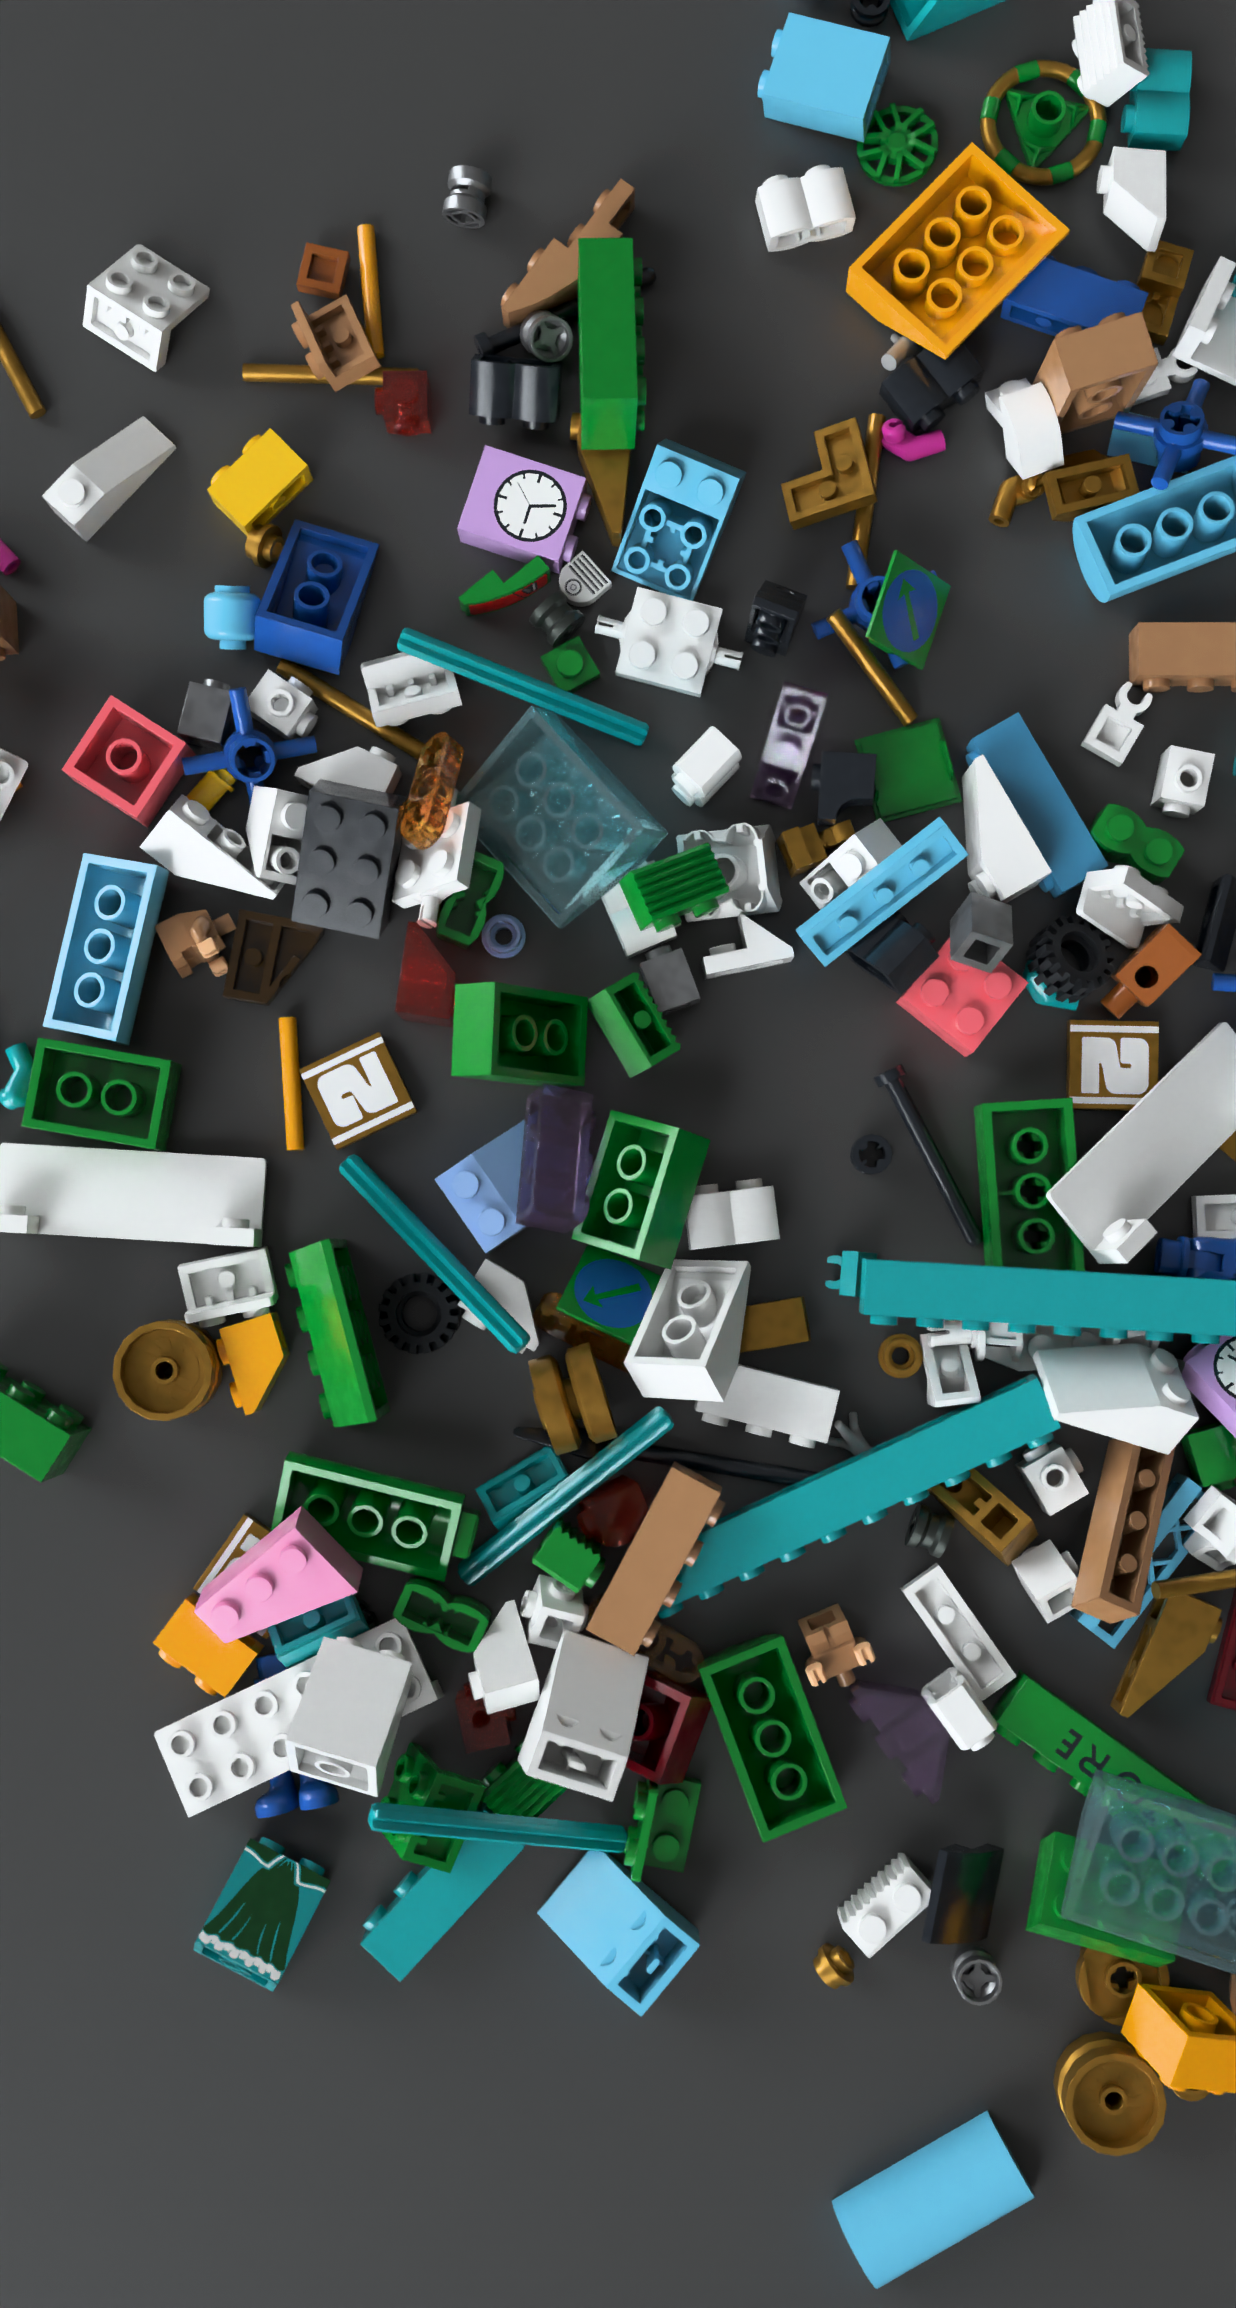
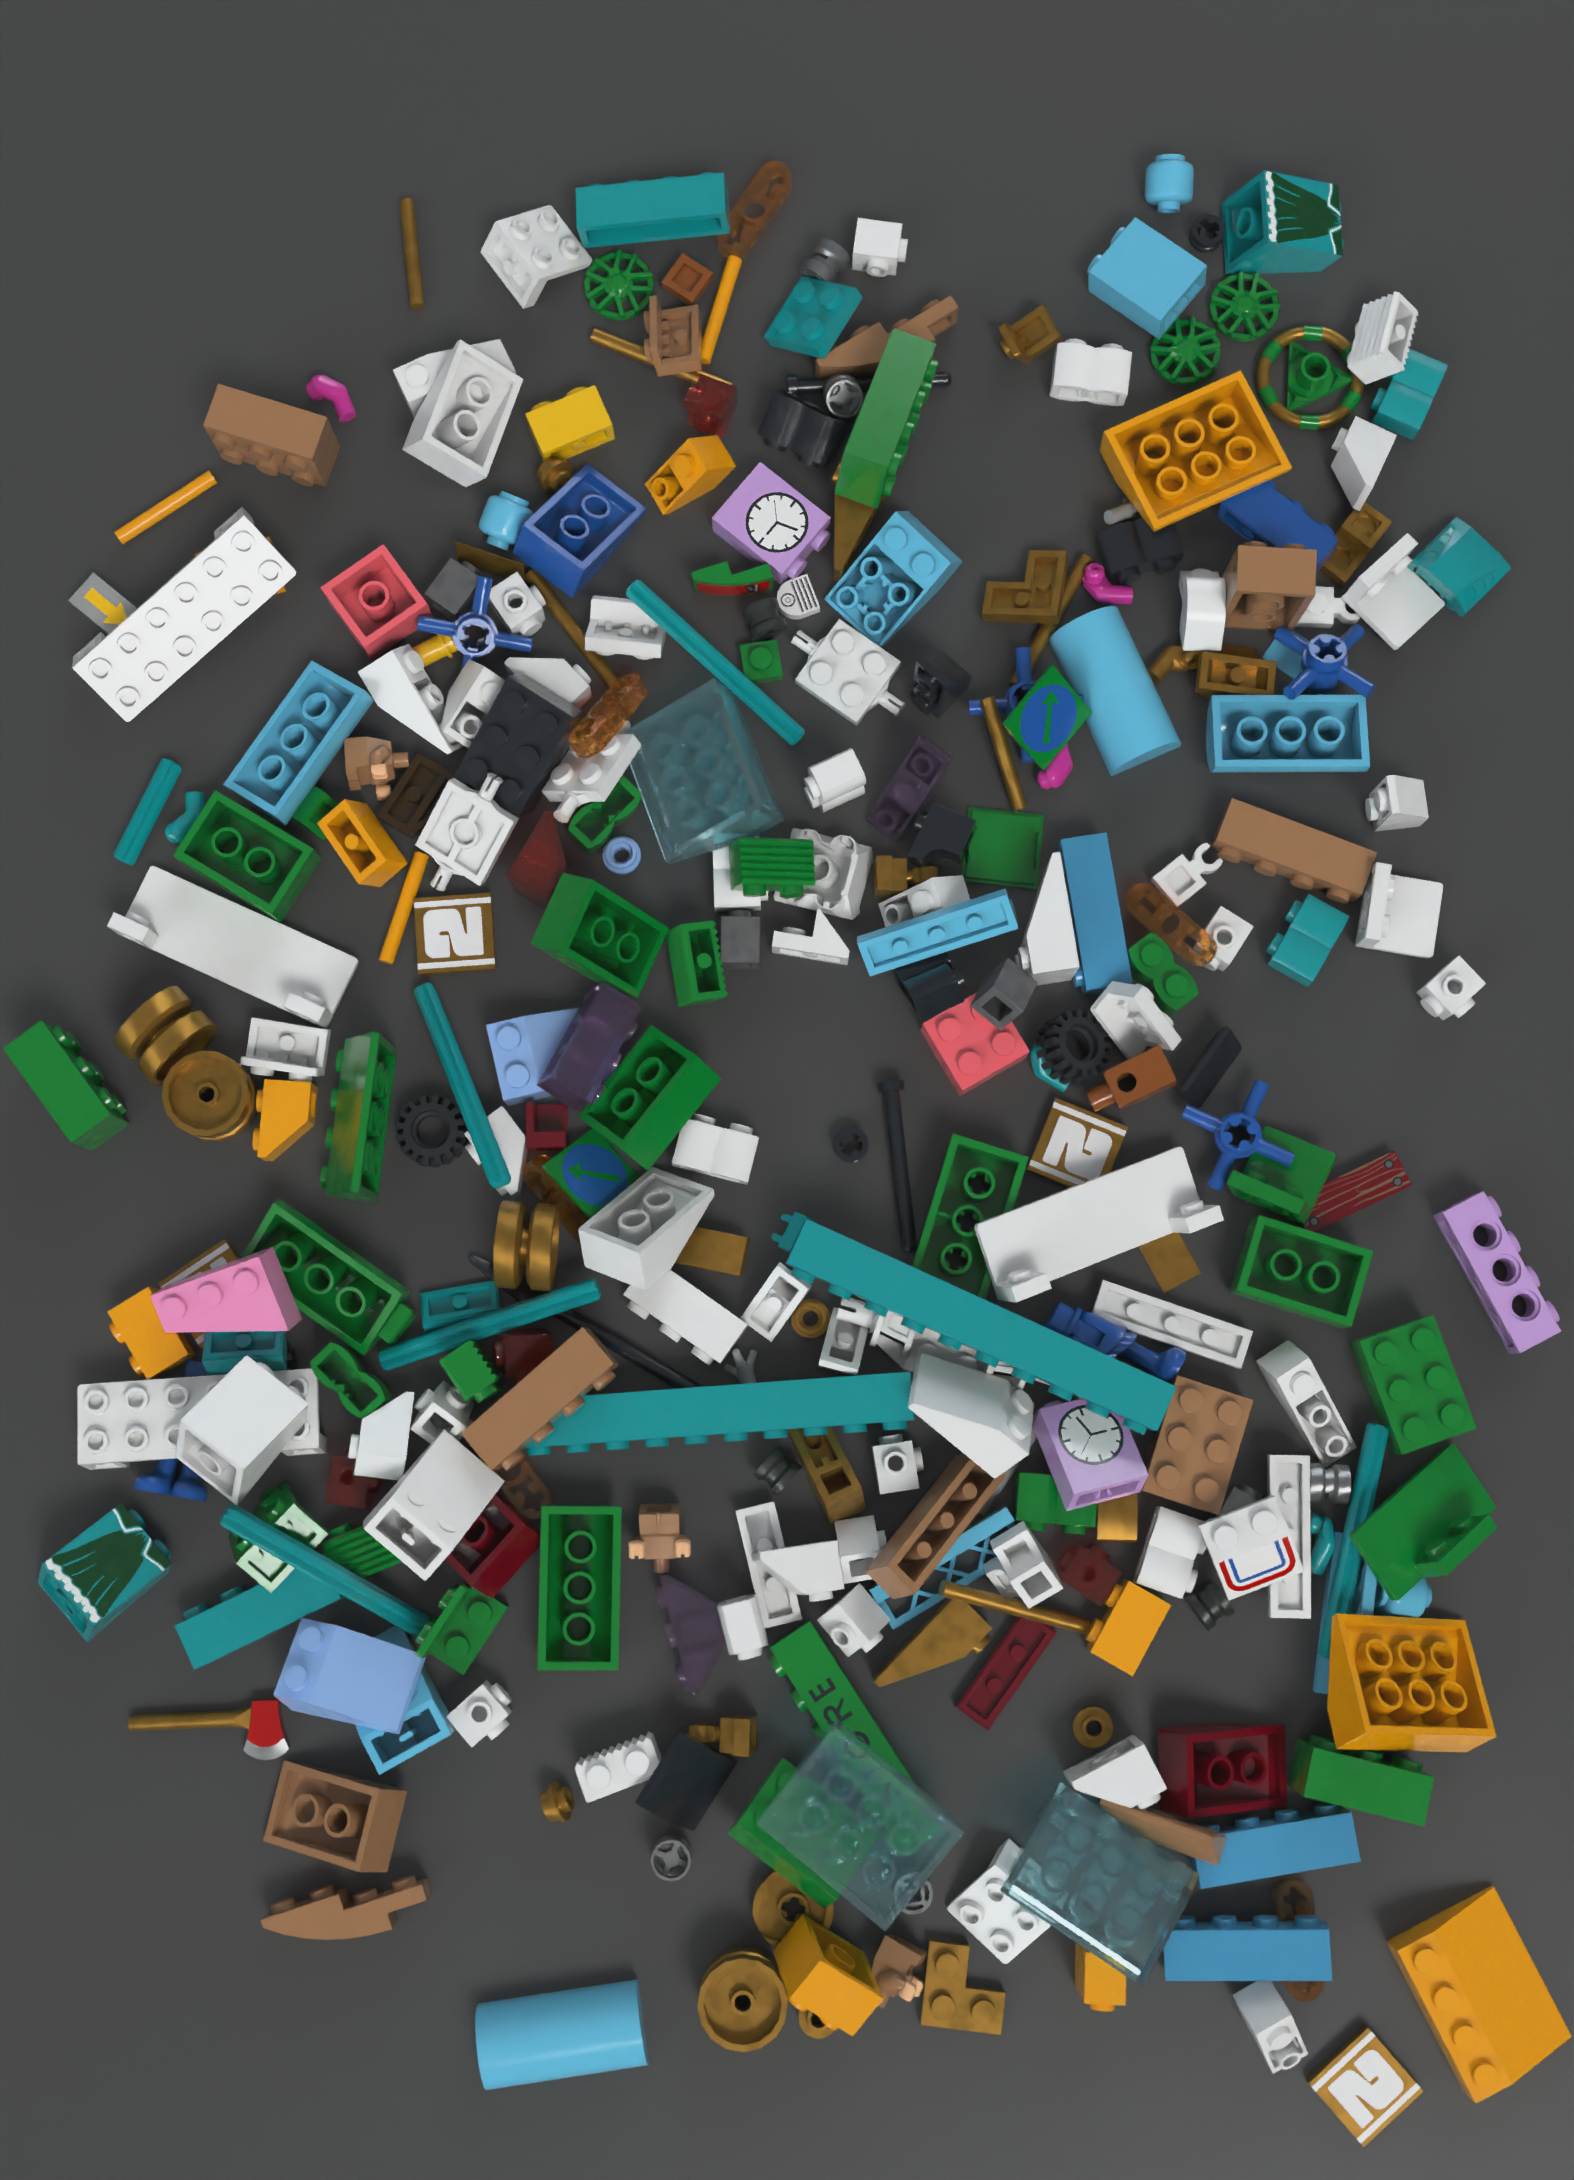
camera: 20 degrees right, 5 degrees down
(92, 1322) = (164, 1033): none -> pearl gold wheel
(141, 517) = (464, 415): none -> white slope
(159, 1017) = (313, 809): none -> green plate
(220, 1032) = (362, 843): none -> light orange brick
(232, 669) = (488, 561): none -> pearl gold sticker
(249, 306) = (618, 285): none -> green wheel
(255, 206) = (652, 210): none -> teal brick
(328, 976) = (466, 831): none -> white plate
(358, 146) = (756, 194): none -> clear orange beam
(412, 487) = (690, 473): none -> light orange slope
(479, 260) = (813, 317): none -> teal plate
(490, 1999) = (263, 1719): none -> piece
(519, 154) = (878, 247): none -> white brick
(540, 1260) = (546, 1127): none -> dark red panel
(567, 1926) = (348, 1677): none -> light blue slope
(609, 2072) = (335, 1817): none -> medium nougat slope
(648, 2175) = (332, 1916): none -> medium nougat slope
(718, 1905) = (482, 1713): none -> white brick
(723, 191) = (1030, 335): none -> pearl gold bracket
(859, 1355) = (775, 1302): none -> white slope
(936, 664) = (1057, 770): none -> dark pink arm
(942, 69) = (1244, 306): none -> green wheel
(950, 533) = (1110, 674): none -> medium azure brick
(992, 1822) = (735, 1733): none -> pearl gold piece
(1001, 1623) = (805, 1568): none -> white slope
(1073, 1657) = (854, 1621): none -> white brick
(1147, 808) = (1174, 939): none -> clear orange beam

